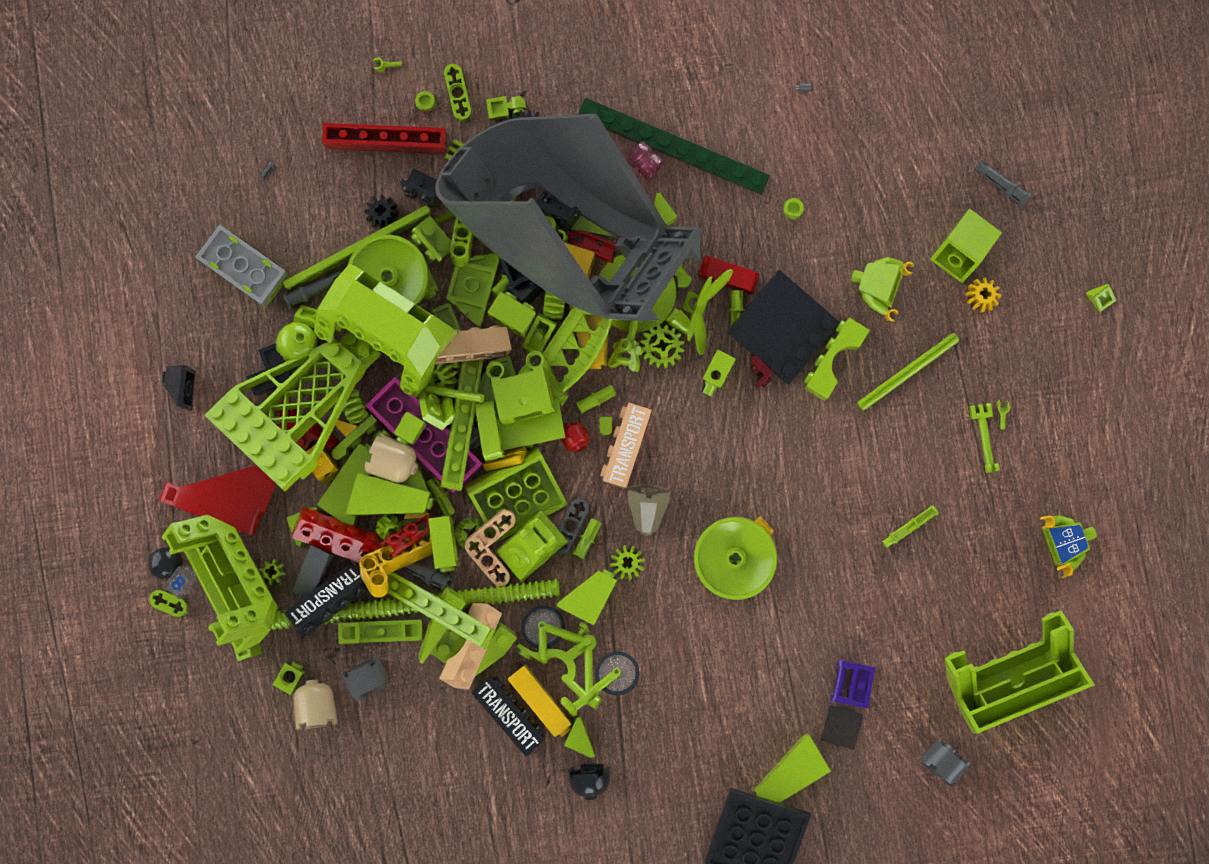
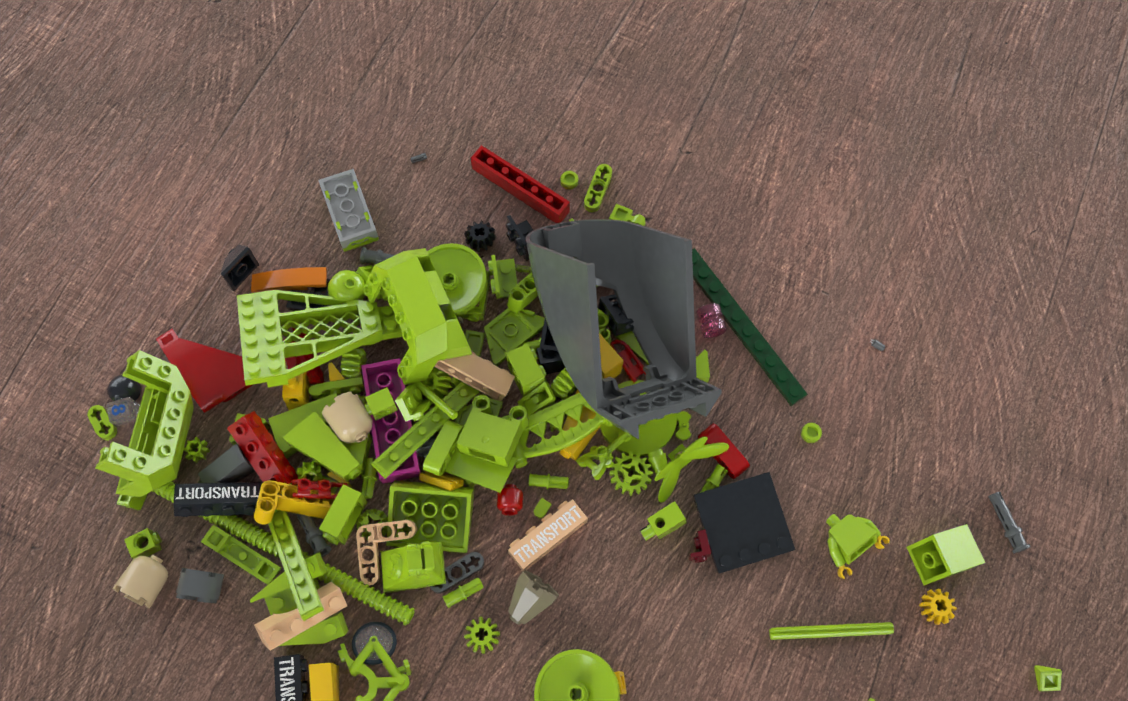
camera: 35 degrees right, 15 degrees down
(237, 368) = (289, 279): none -> orange slope
(344, 255) = (397, 246): lime tile -> none
(384, 65) = (553, 138): lime hand -> none
(590, 597) = (429, 642): lime slope -> none
(823, 381) = (796, 567): lime arch -> none

